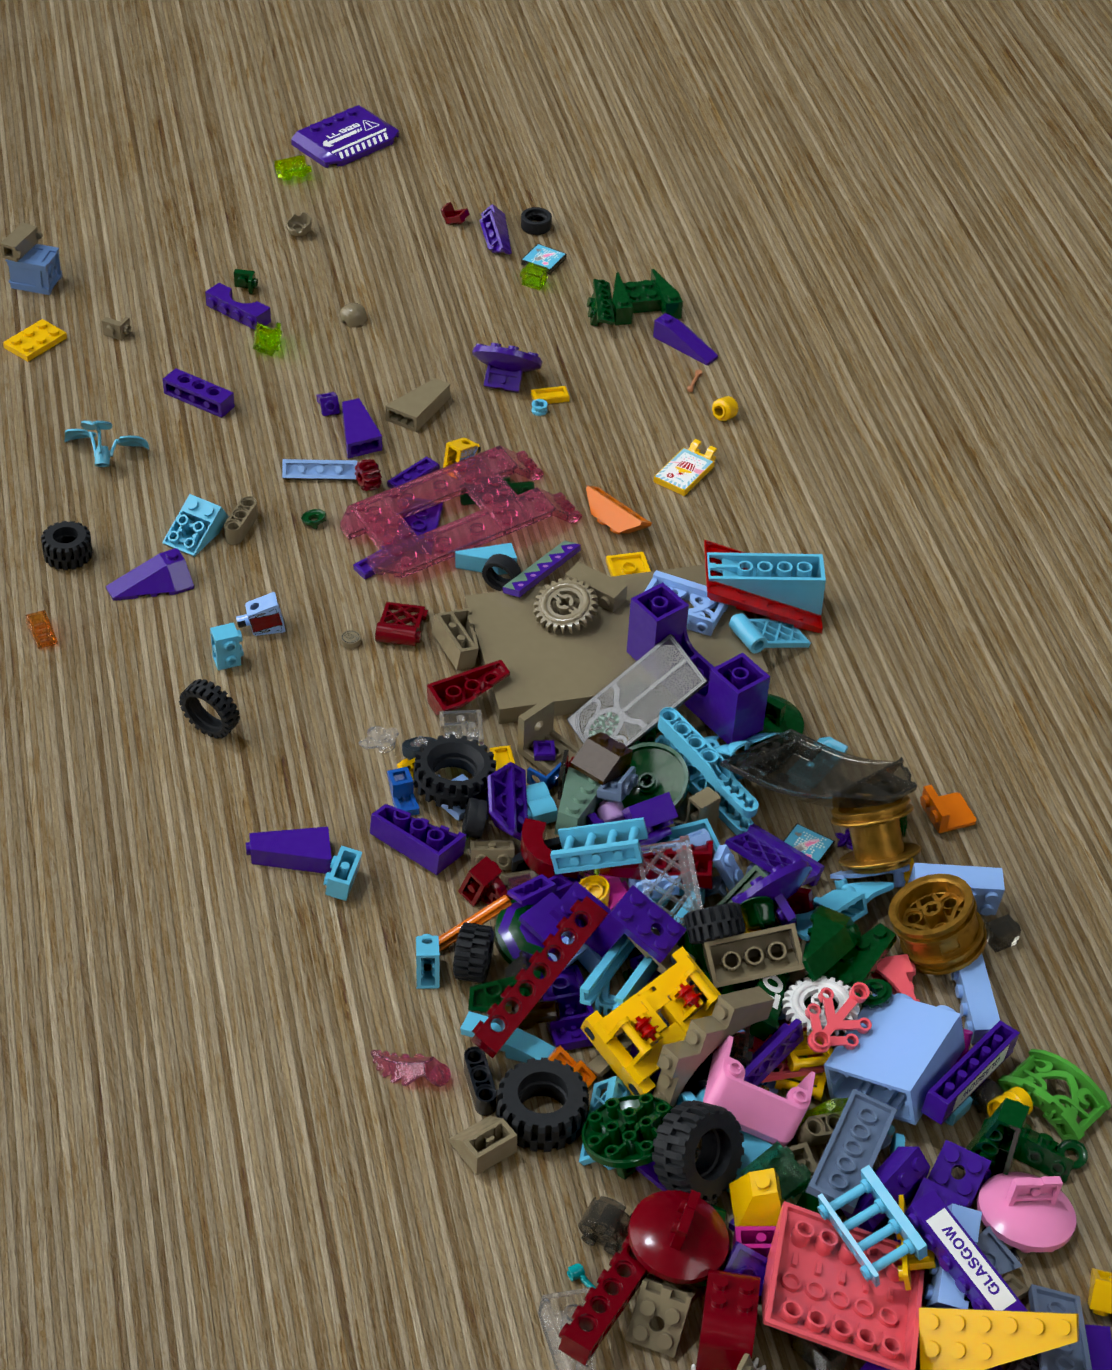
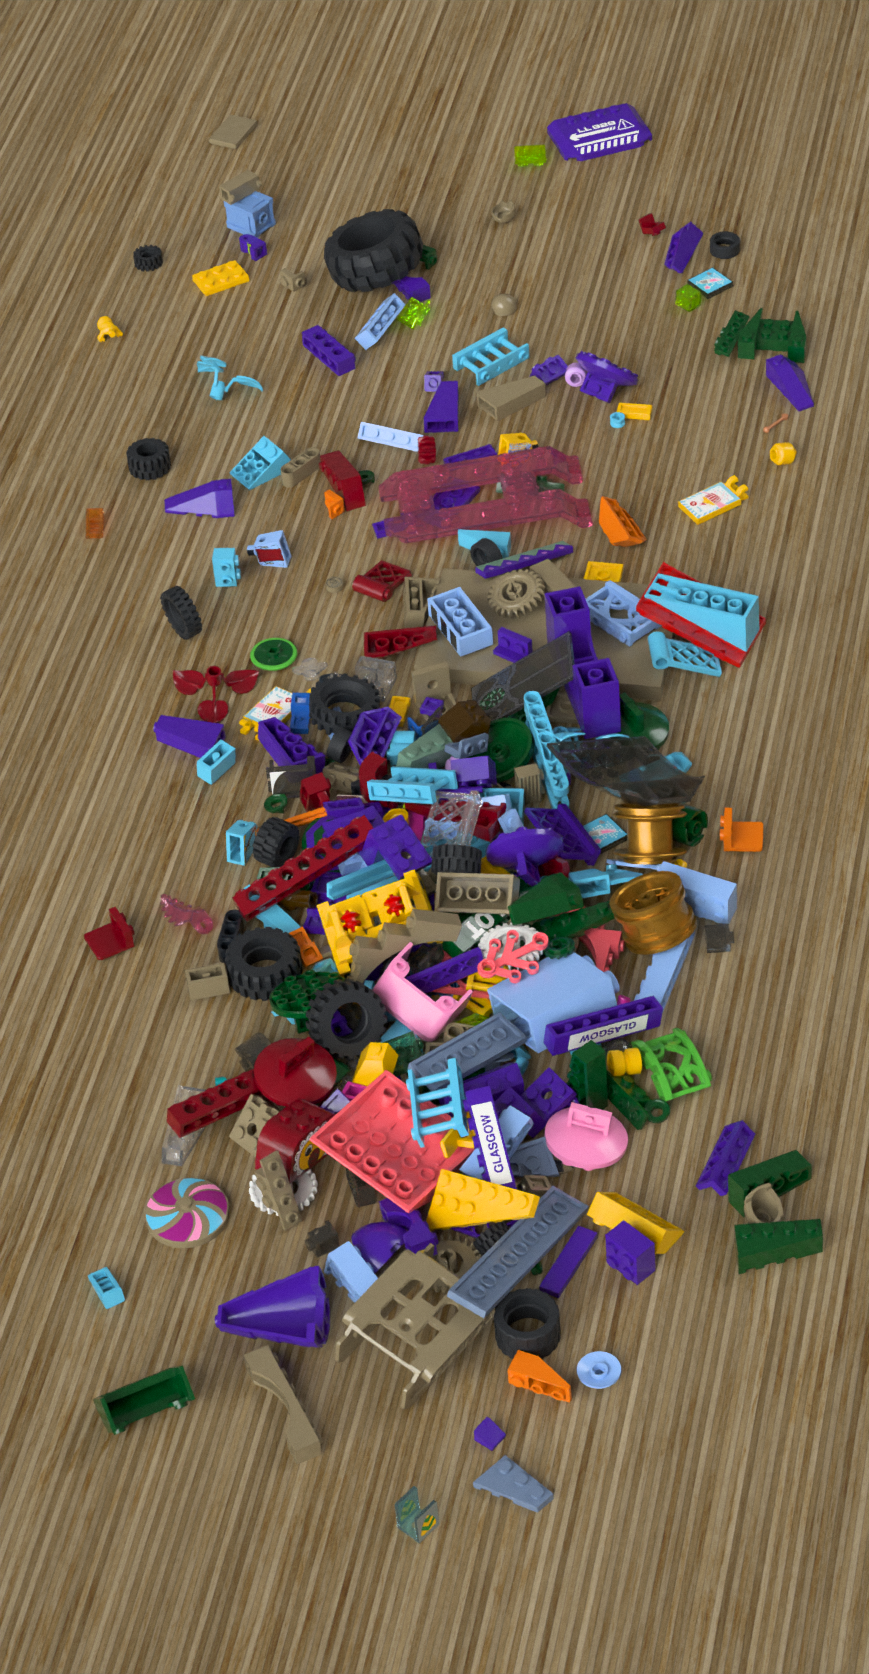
camera: 30 degrees right, 0 degrees up
(53, 301) = (251, 245): none -> dark purple leg
(197, 282) = (373, 250): none -> black tyre
(238, 353) = (380, 321): none -> light blue brick
(297, 523) = (343, 479): none -> dark red wedge
(300, 550) = (334, 504): none -> orange bracket
(300, 813) = (214, 711): none -> dark red plant
(330, 731) = (273, 654): none -> dark green wheel
(339, 1121) = (111, 937): none -> dark red bracket
(365, 357) = (488, 345): none -> medium azure fence
(365, 795) = (274, 704): none -> tile
(432, 897) = (273, 799): none -> dark green piece
(443, 369) = (550, 370): none -> dark purple bracket
(443, 873) = (288, 778): none -> clear smoke panel
(472, 370) = (575, 375): none -> lavender head
(527, 649) = (460, 621): none -> light blue brick
(599, 663) = (512, 645): none -> dark purple bracket
(758, 912) = (501, 861): dark green piece -> none

